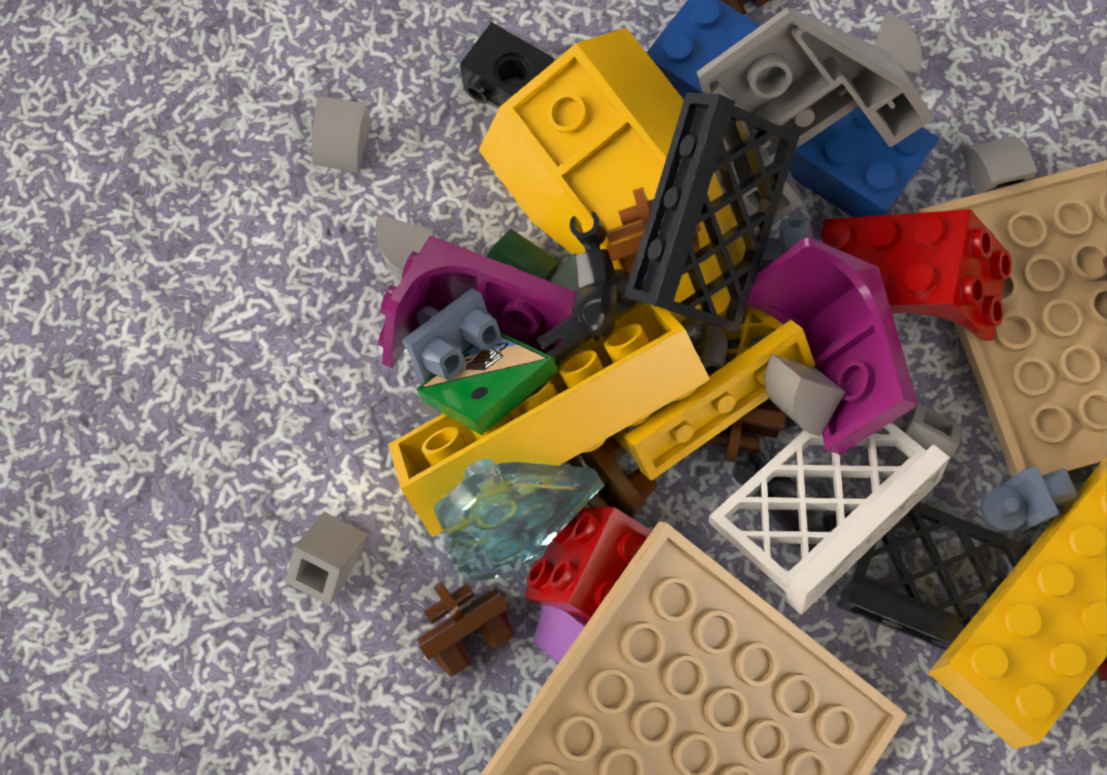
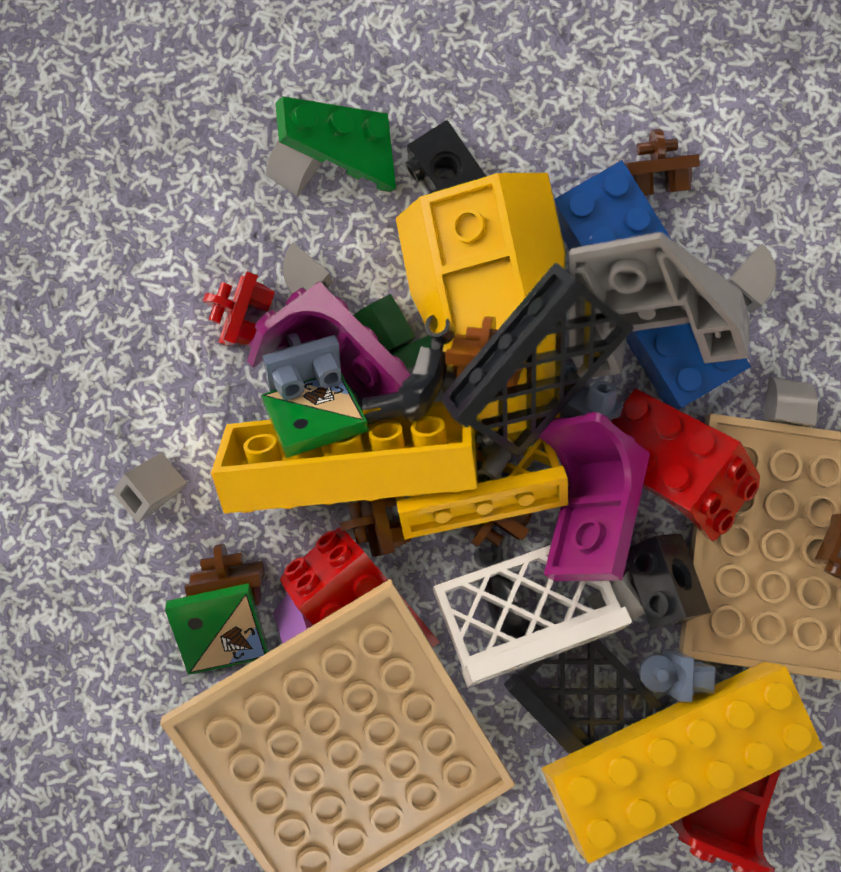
camera: 20 degrees right, 10 degrees up
(348, 297) = (248, 293): none -> red hips
(384, 83) = (340, 134): none -> green wing
(477, 683) = (217, 628): none -> tile
(510, 512) = (288, 520): clear light blue plate -> none
(802, 393) = (546, 524): light grey brick -> none
(964, 404) = (666, 581): none -> black brick

